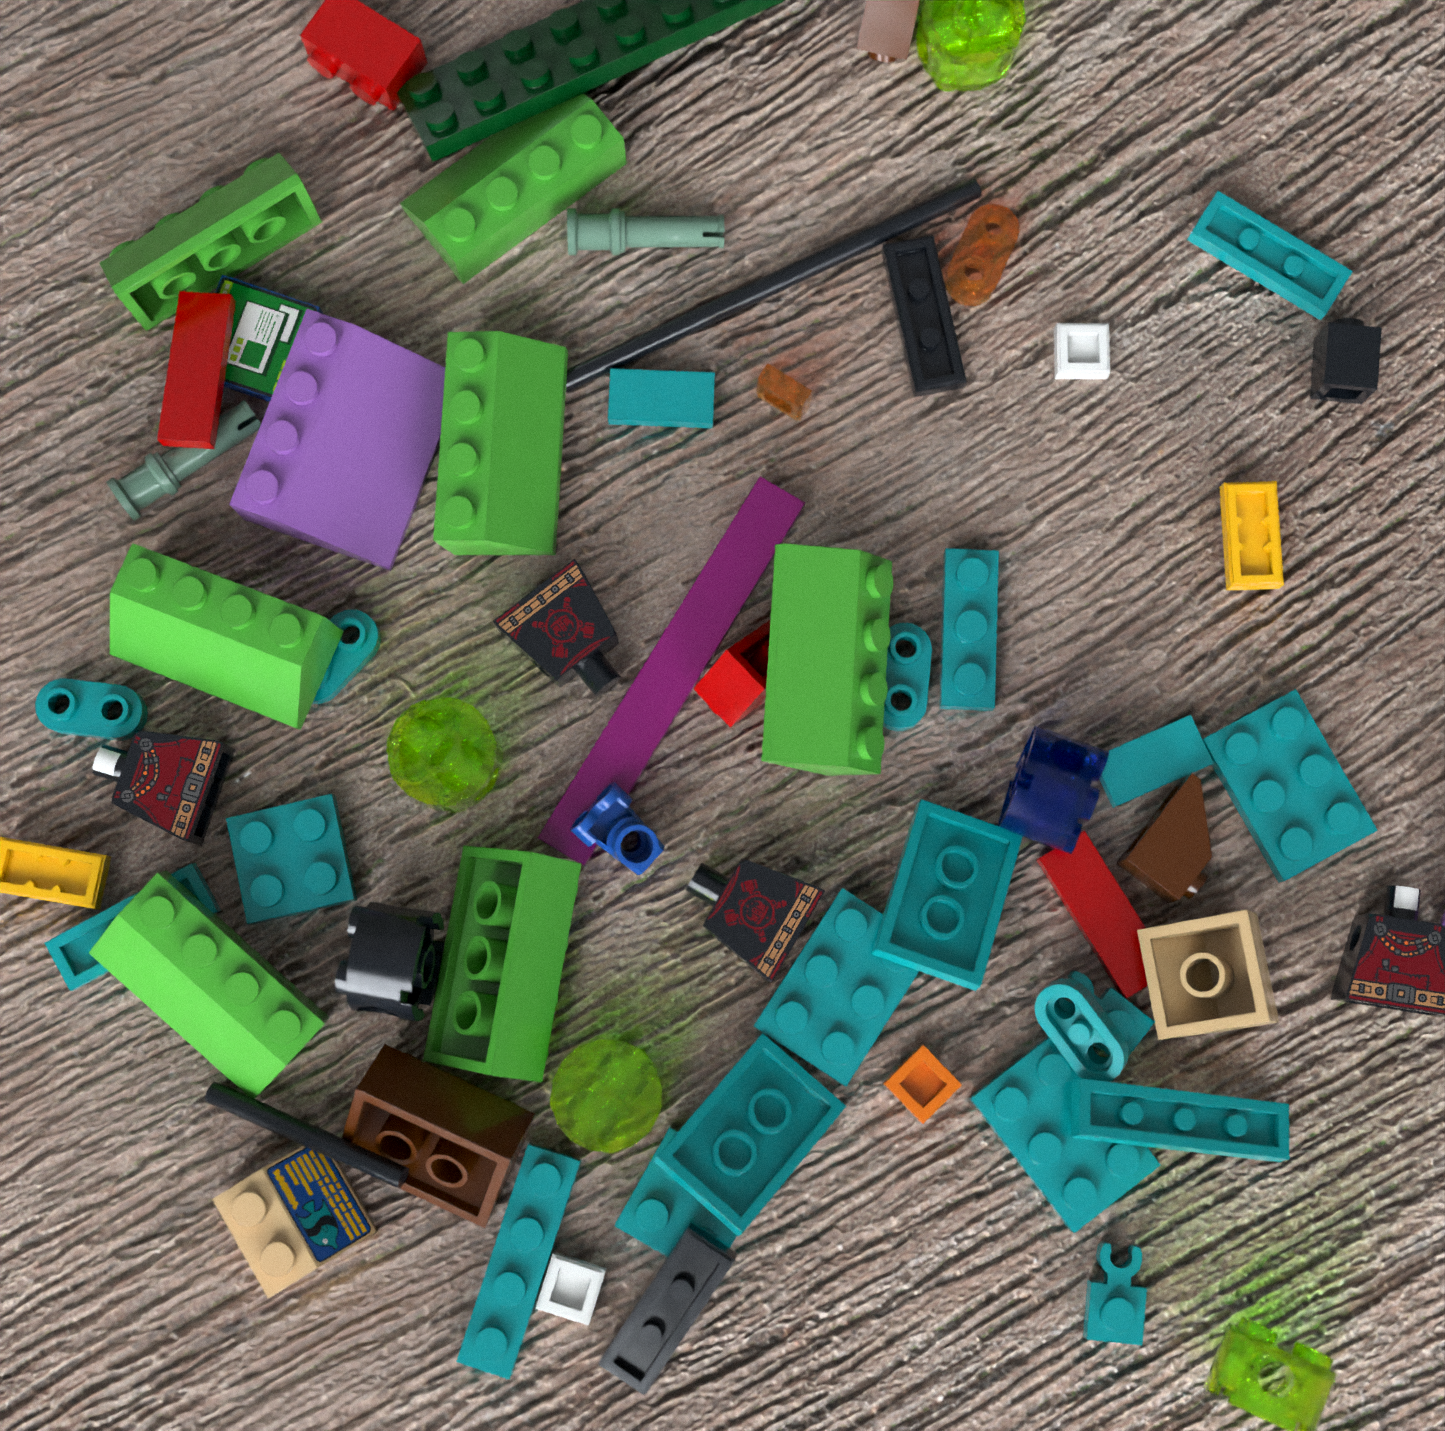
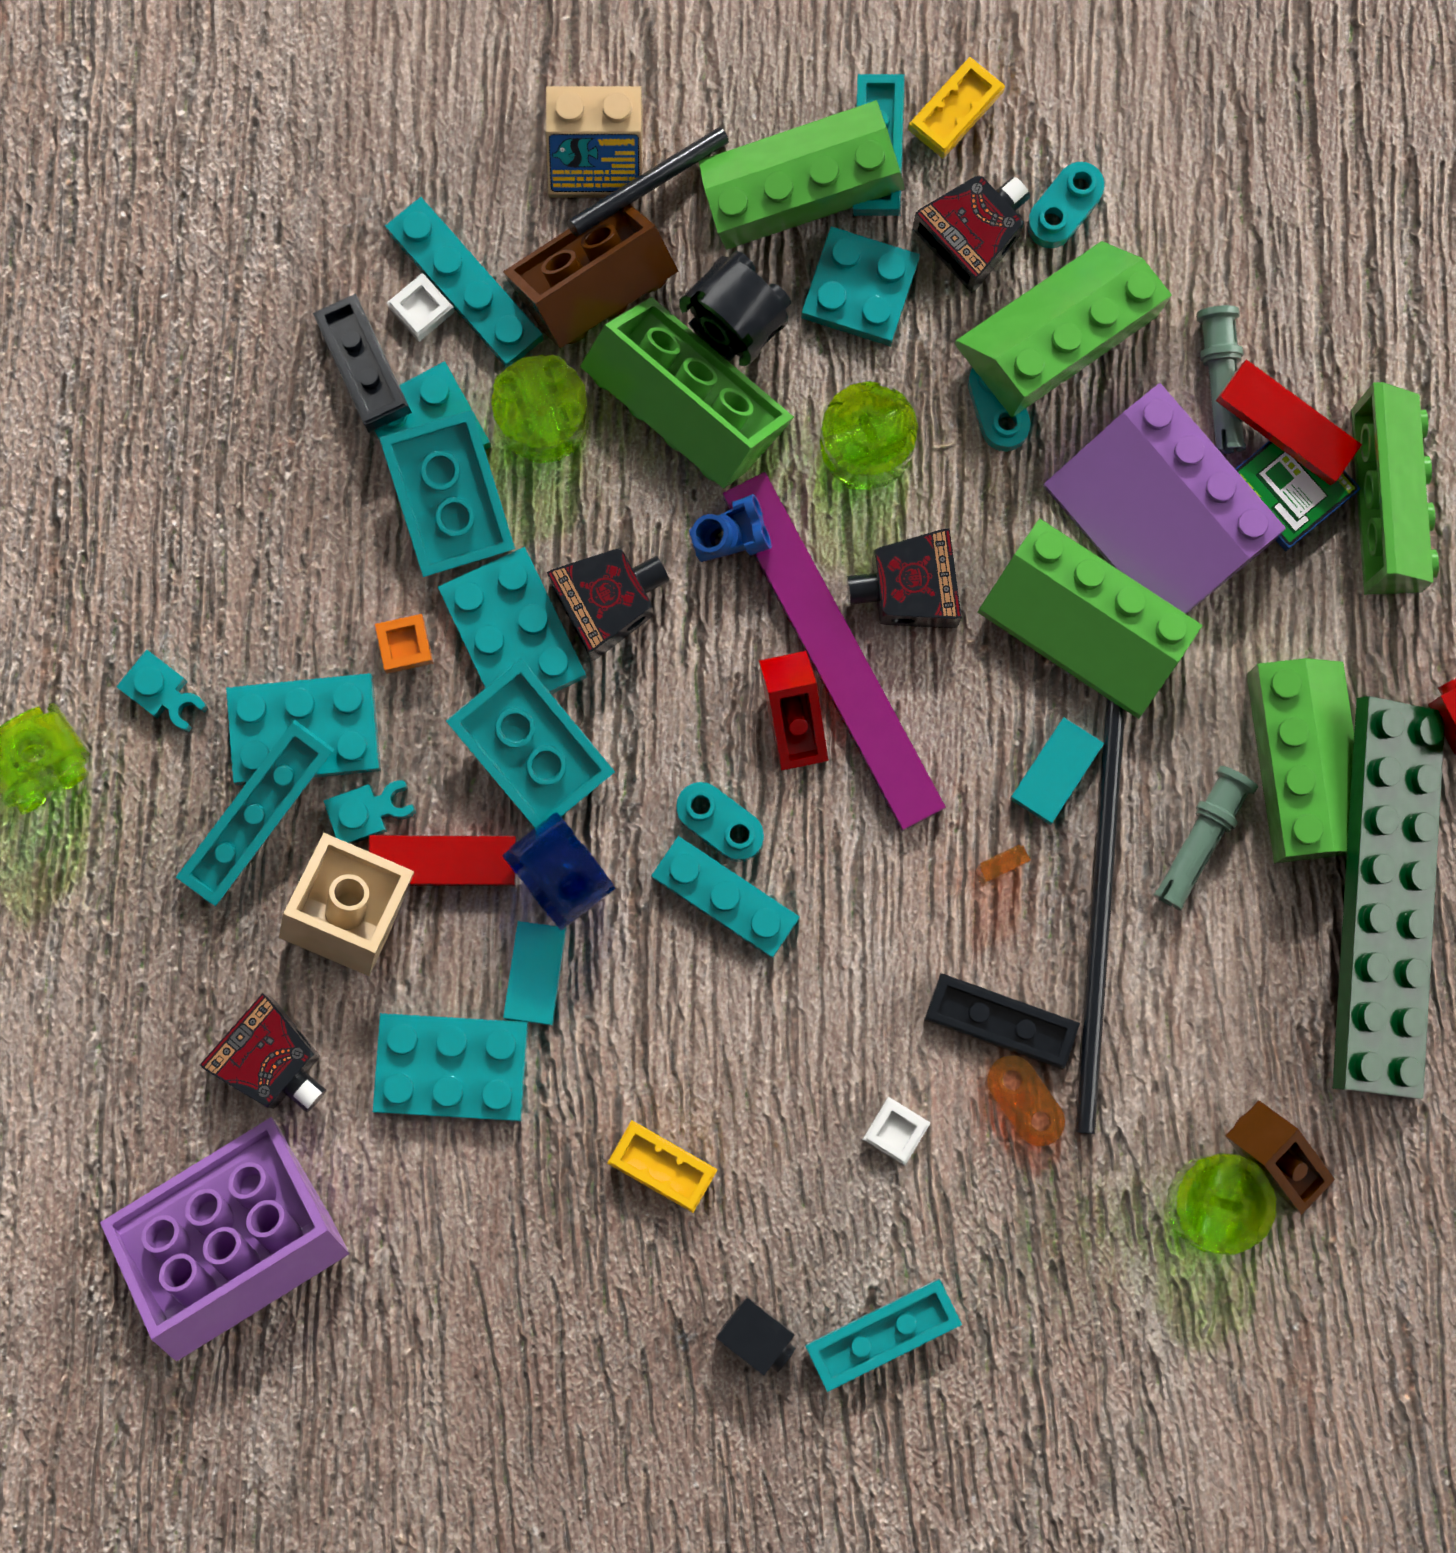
camera: 120 degrees right, 0 degrees up
(827, 660) = (764, 760): bright green slope -> none
(1079, 1030) = (367, 779): teal plate -> none
(1173, 845) = (460, 942): reddish brown slope -> none

